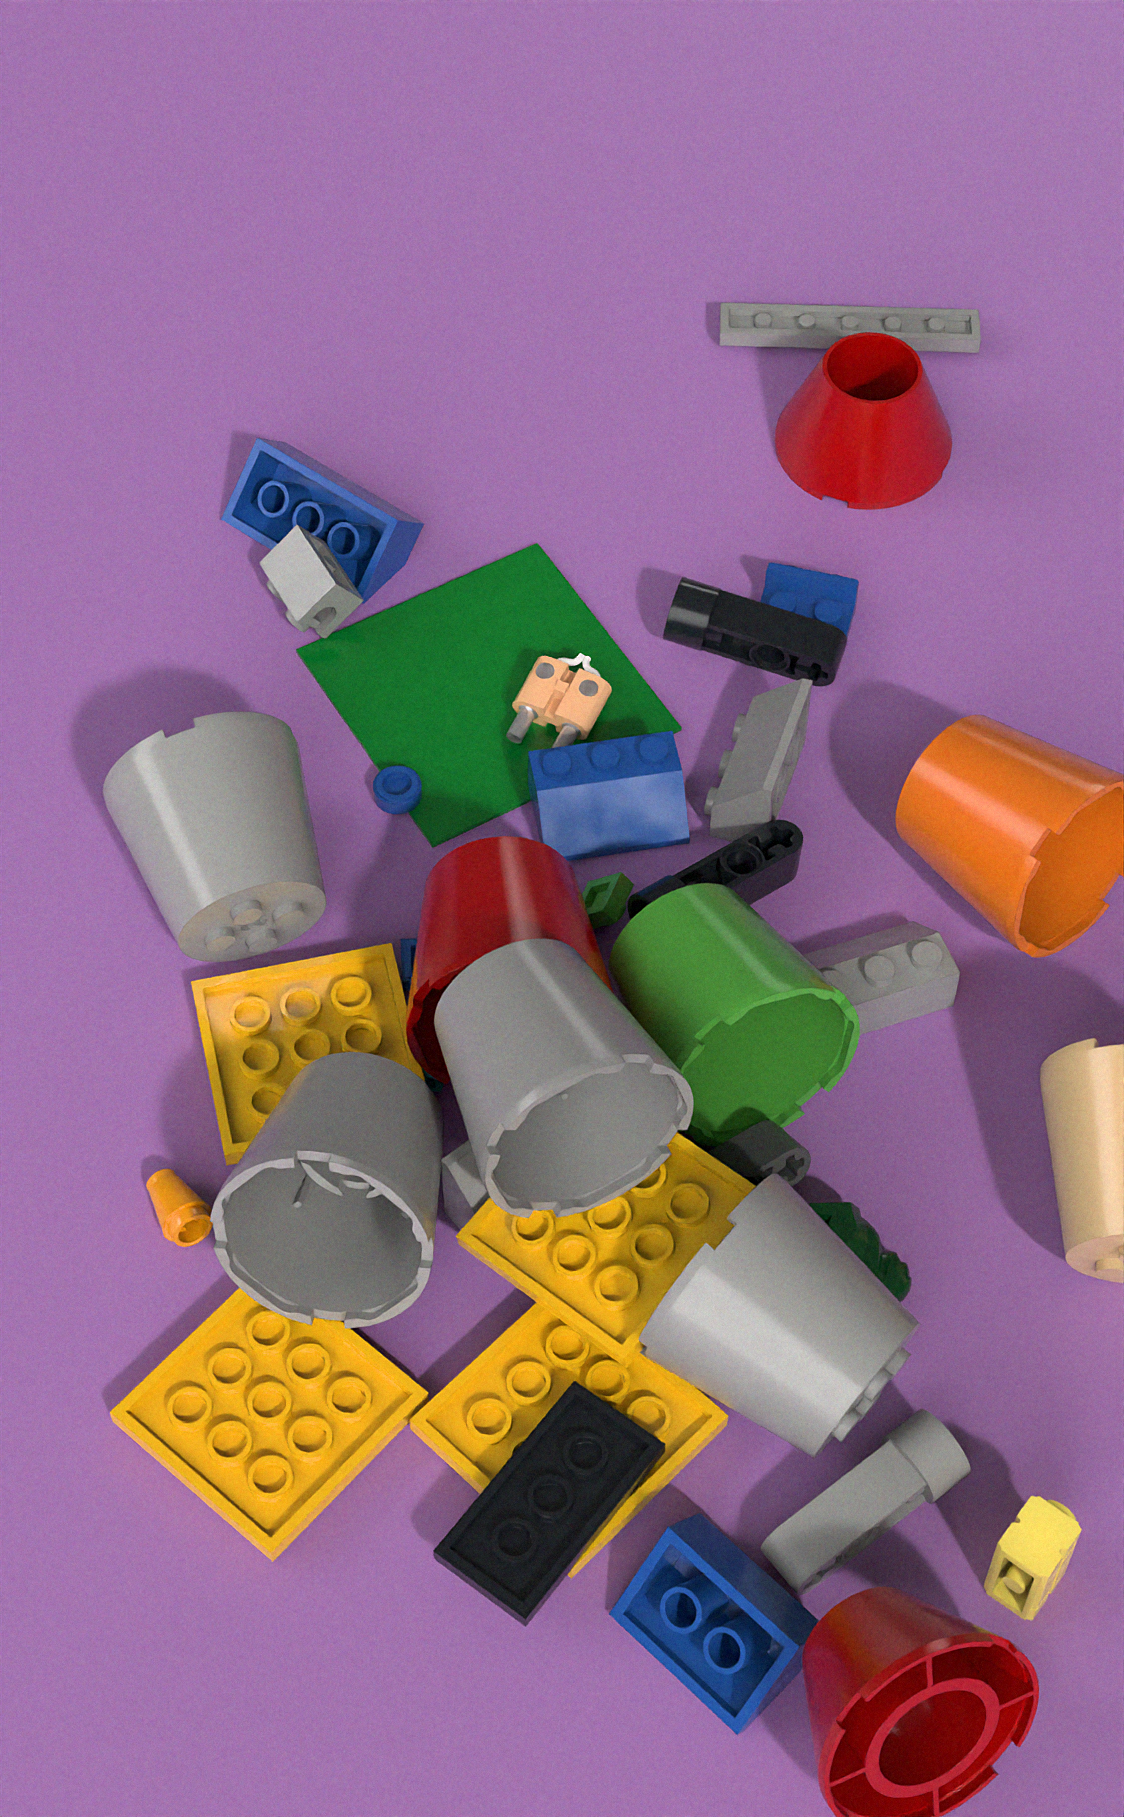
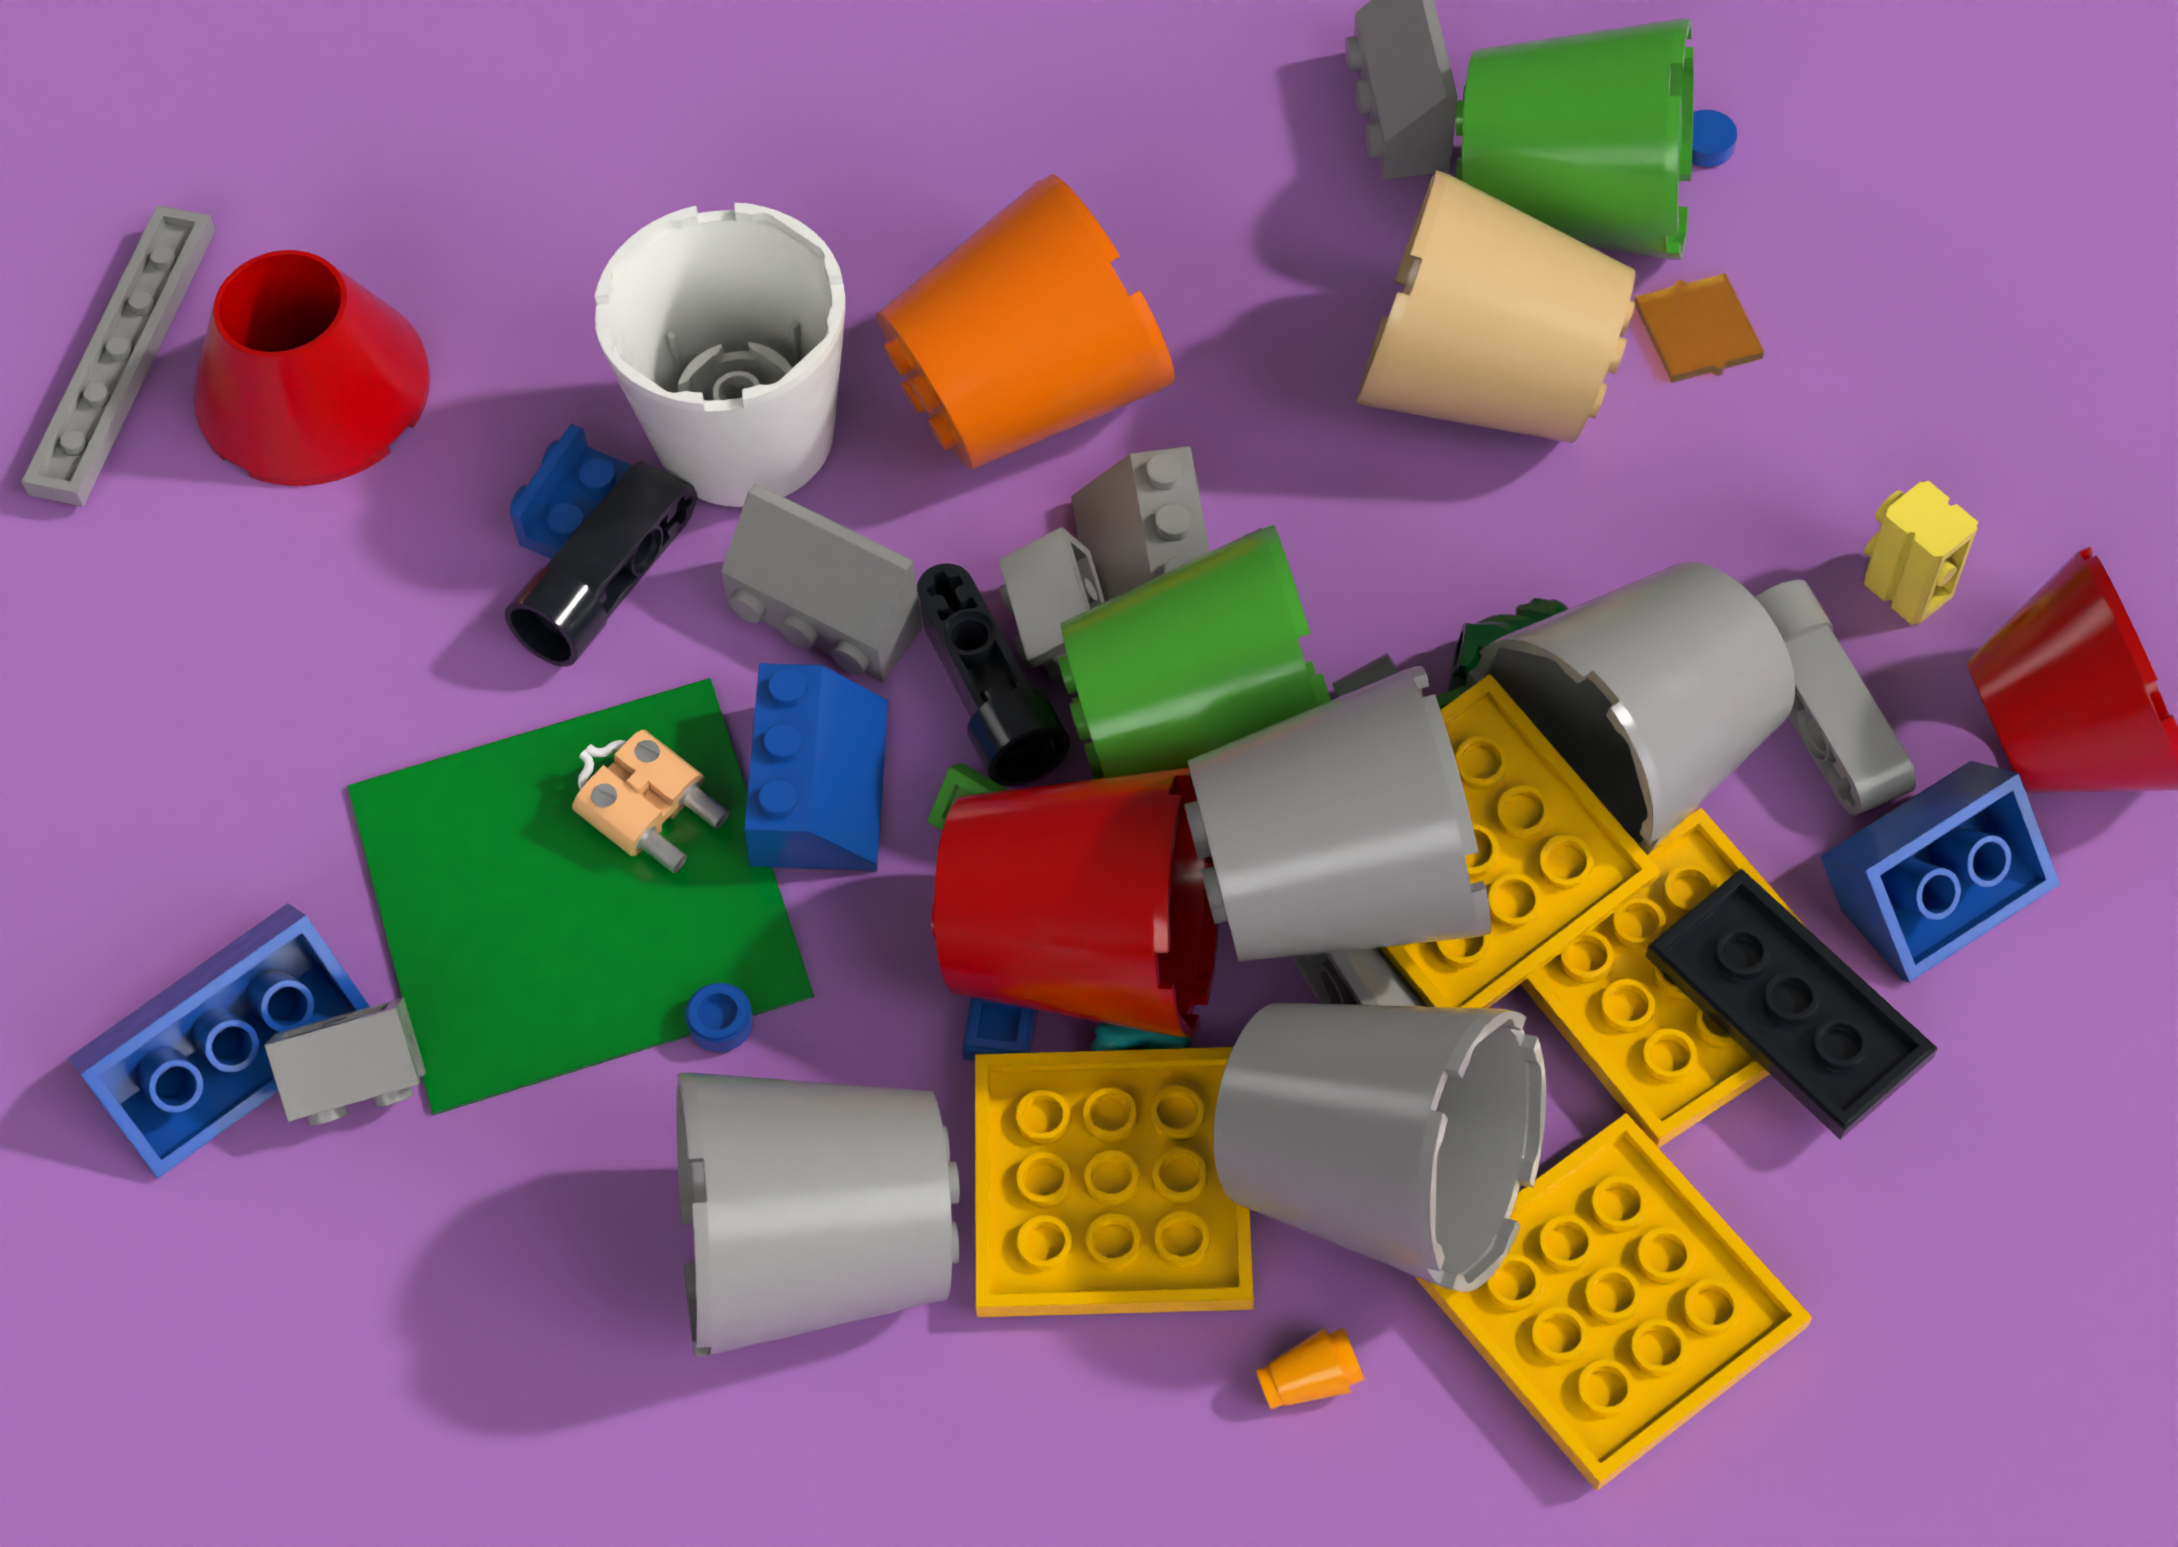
camera: 75 degrees left, 5 degrees up
(807, 912) = (1045, 587): none -> light grey brick
(914, 627) = (727, 346): none -> white cone

